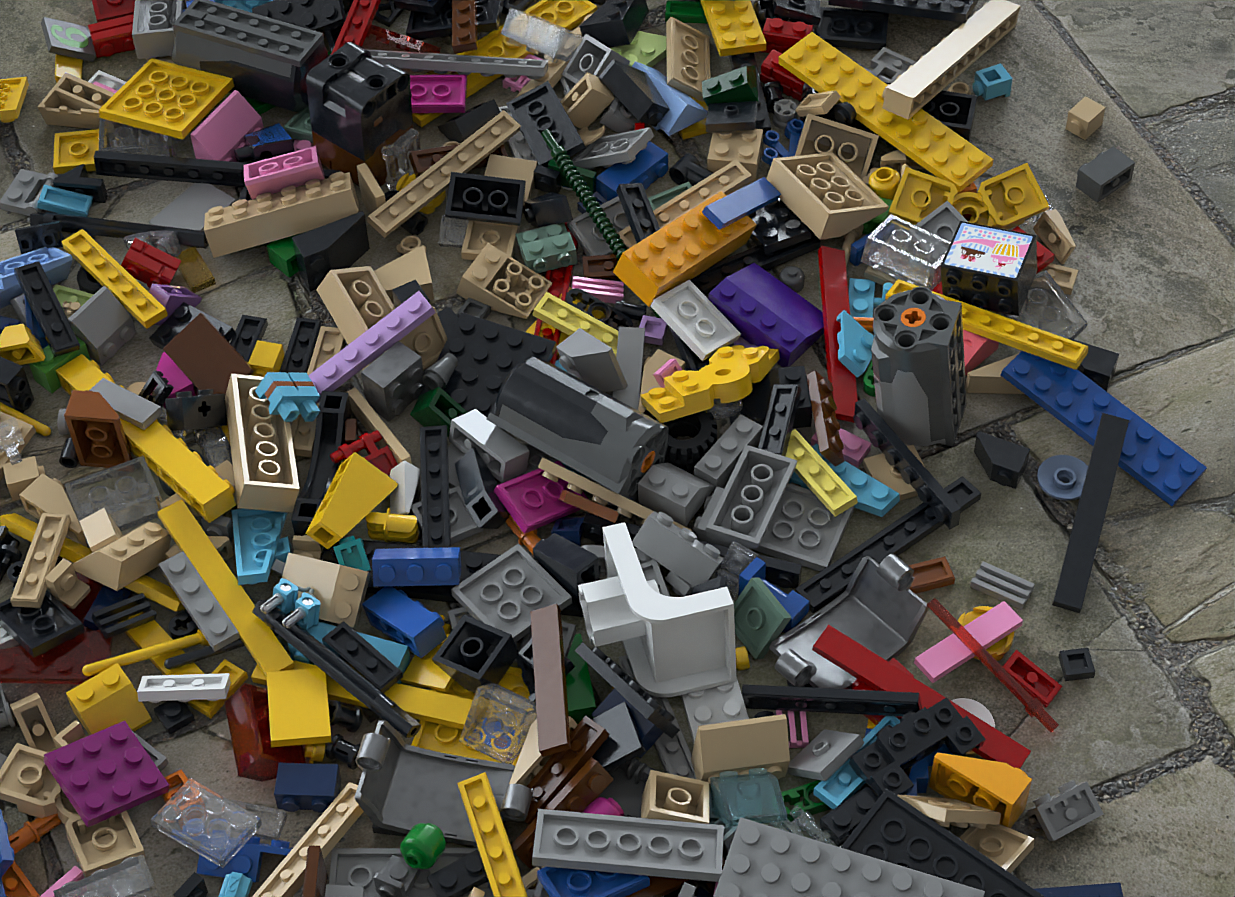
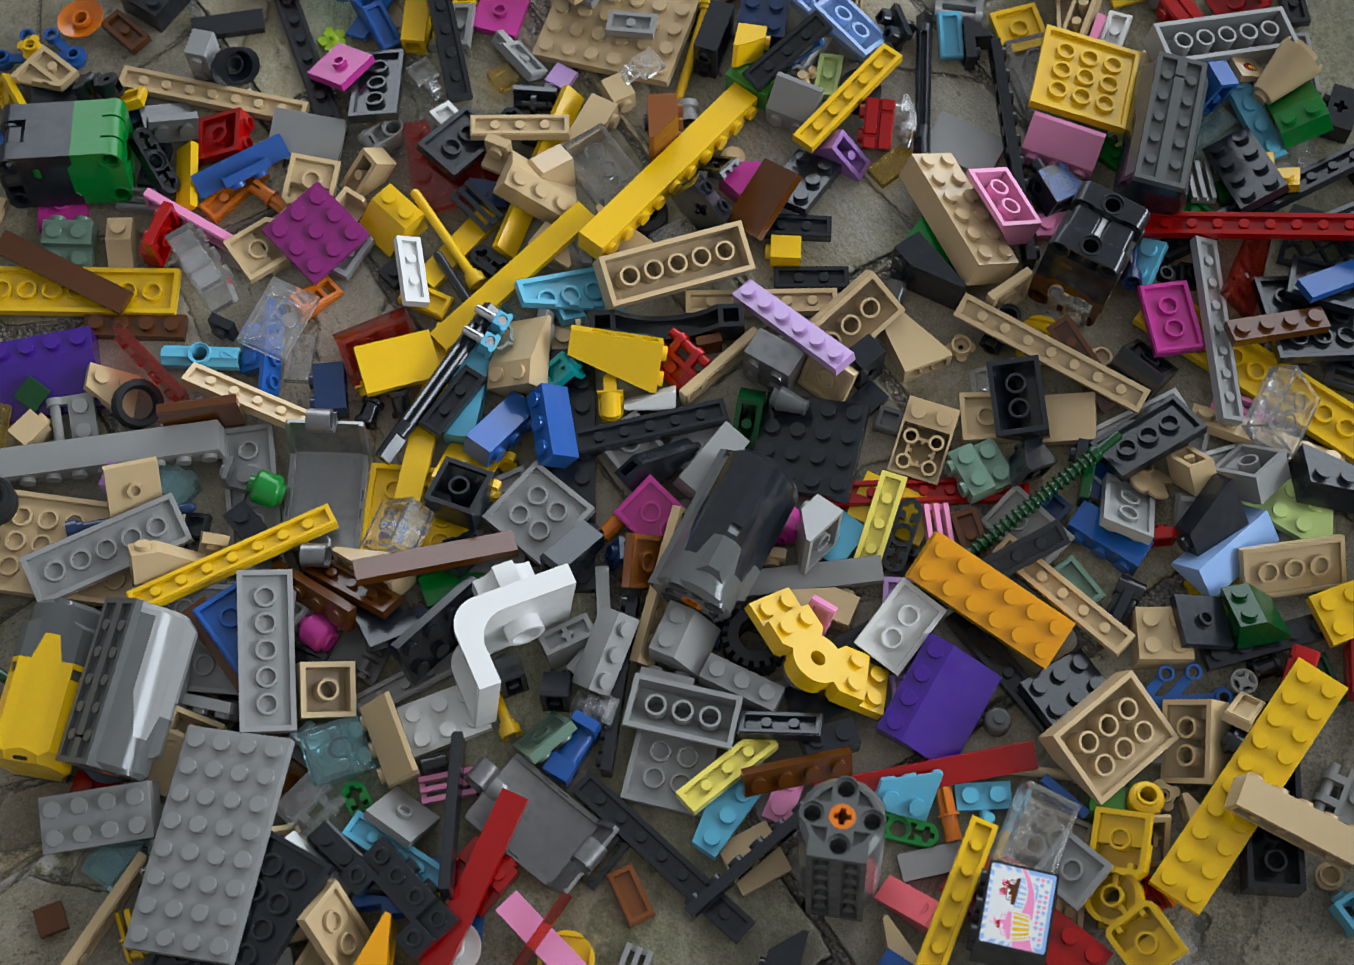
camera: 80 degrees right, 15 degrees up
(128, 404) = (692, 143): light grey tile -> none
(199, 601) = (495, 258): light grey plate -> none
(290, 395) = (723, 273): medium azure hips -> none
(741, 203) = (1059, 646): tile -> none

